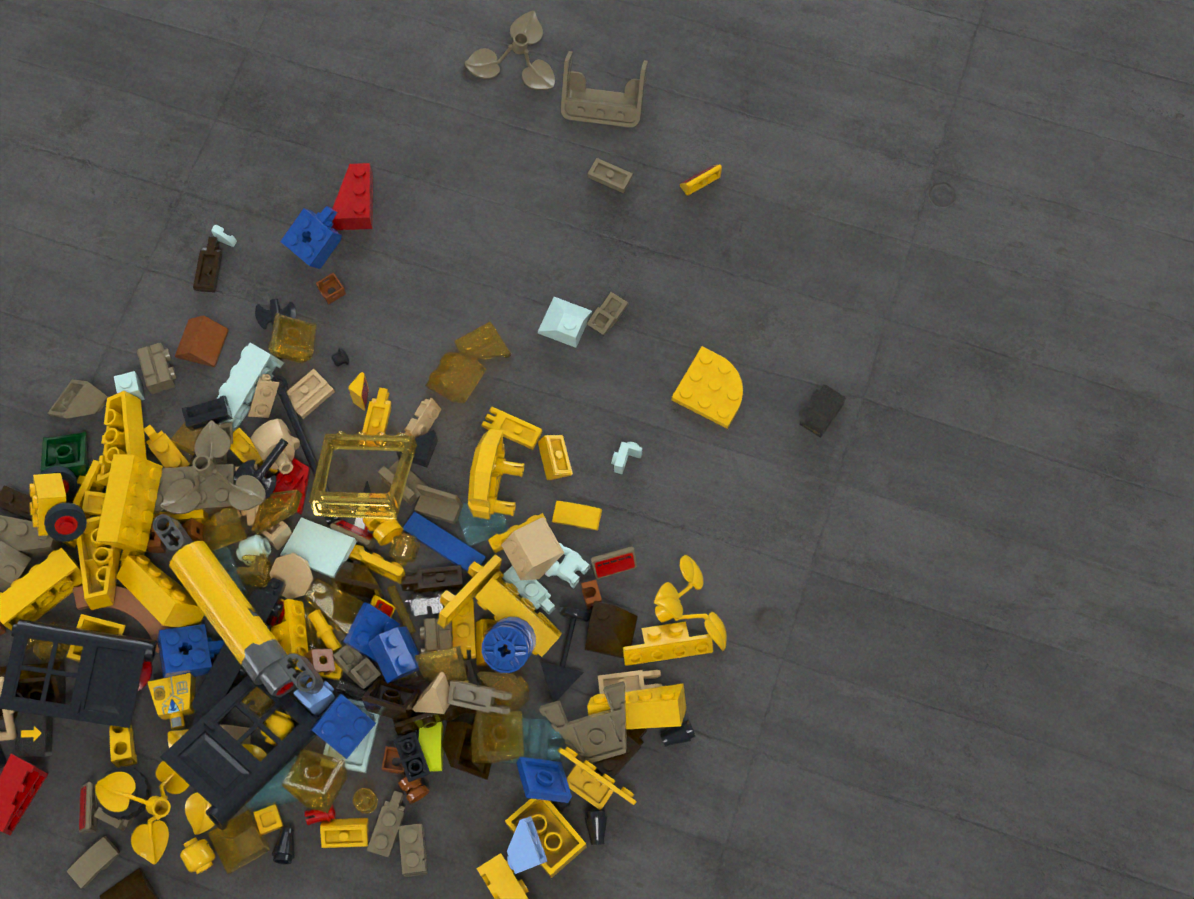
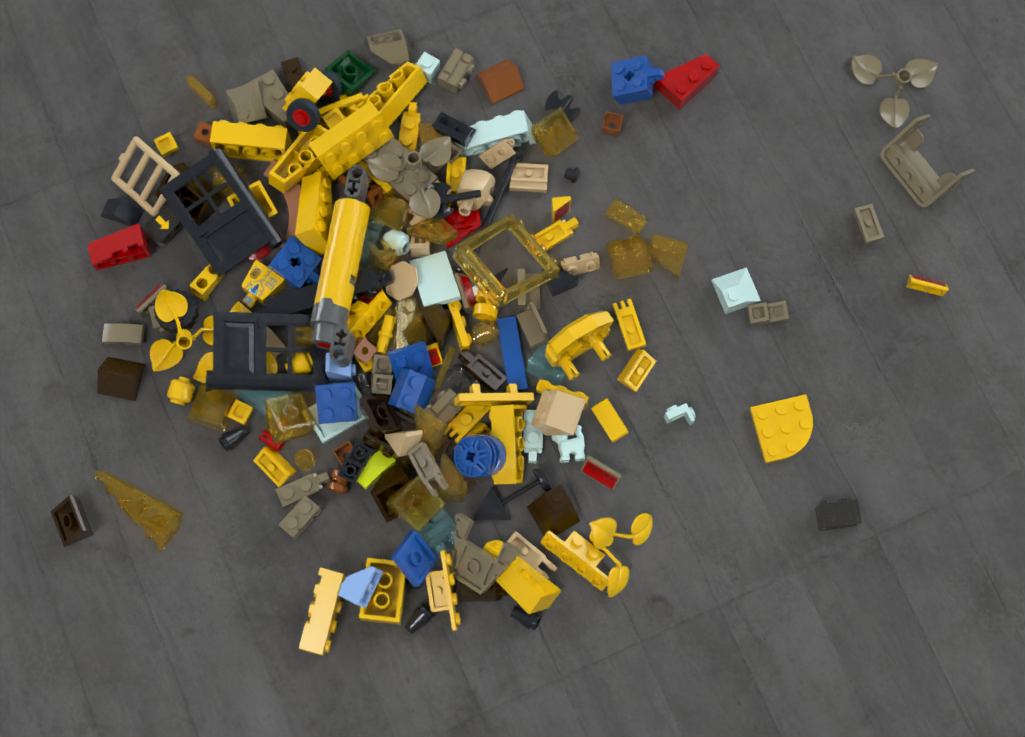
camera: 45 degrees right, 5 degrees up
(208, 267) = (552, 36): dark brown hinge -> none
(222, 237) = (581, 25): light aqua tile -> none
(420, 347) = (626, 216): none -> clear yellow slope
(591, 593) = (566, 477): dark orange piece -> none

